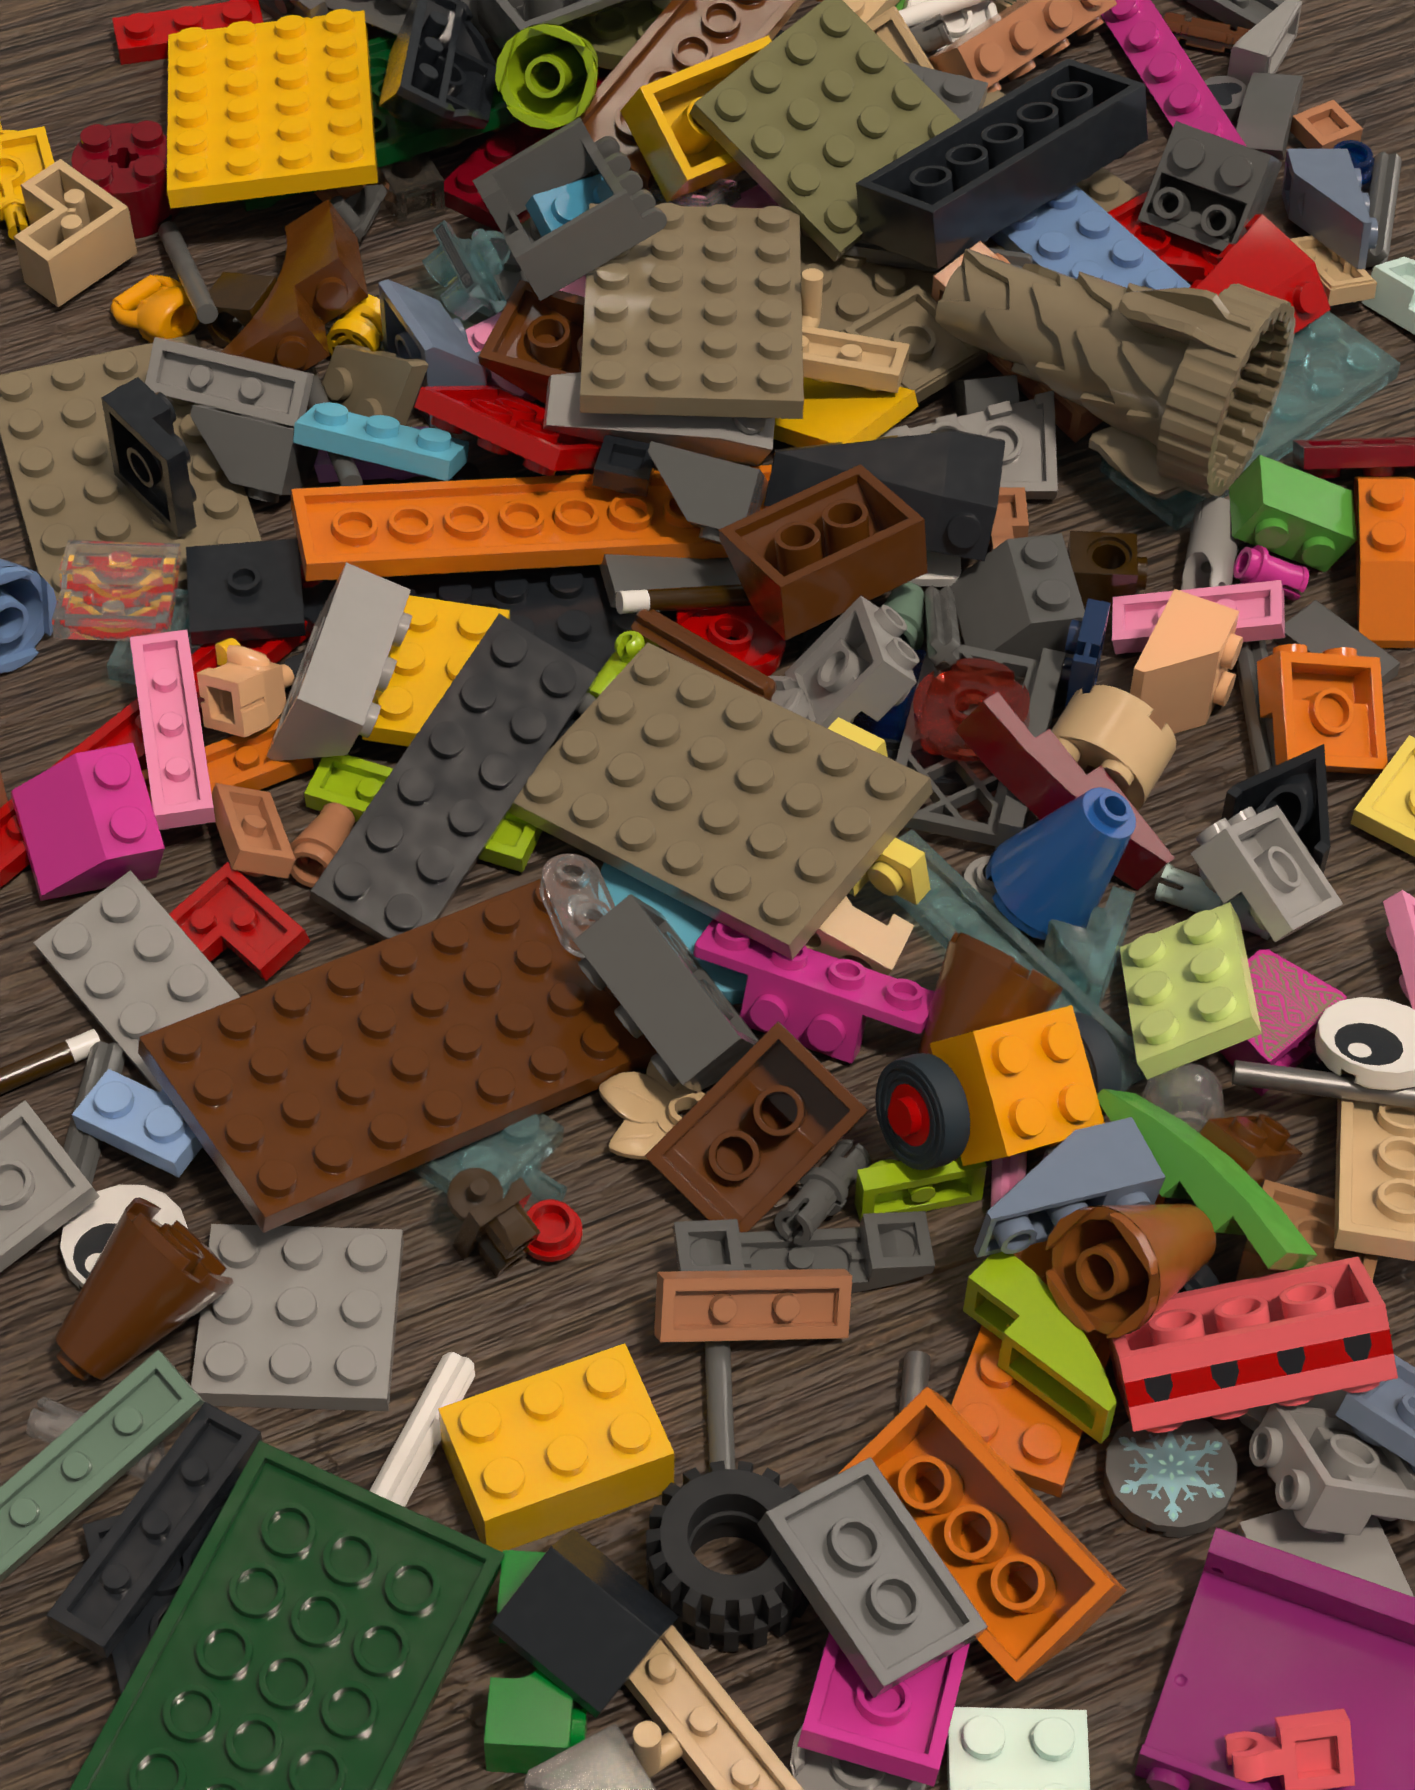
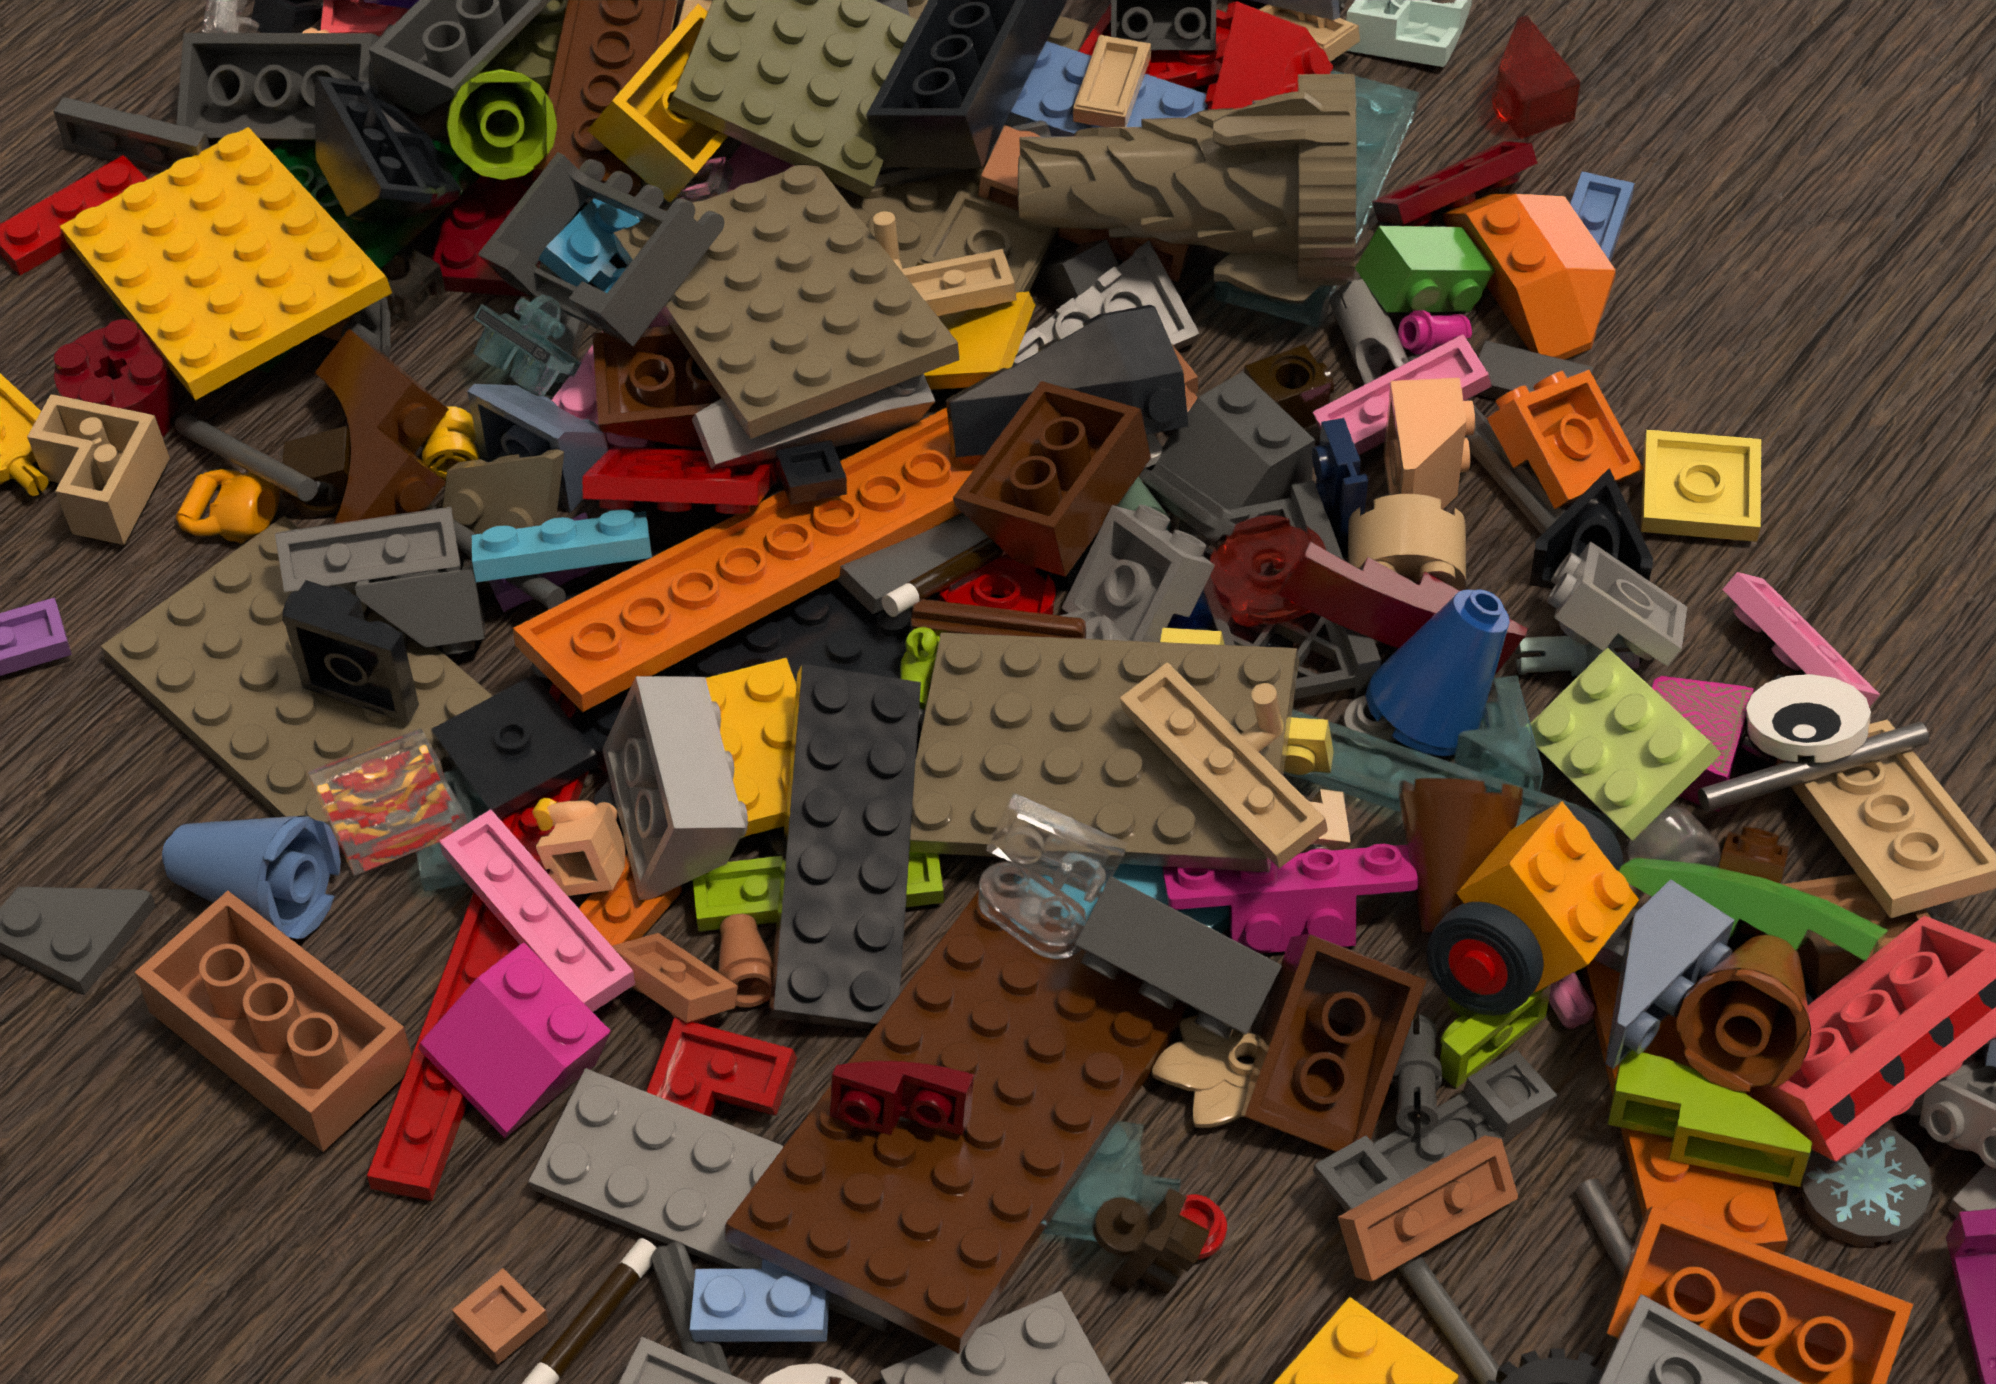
camera: 25 degrees left, 0 degrees up
(337, 991) = (883, 1091): none -> dark red slope
(621, 854) = (1056, 846): none -> clear plate
(708, 488) = (912, 464): dark grey slope -> none
(797, 843) = (1228, 762): none -> tan plate
(1109, 241) = (1112, 82): none -> tan tile

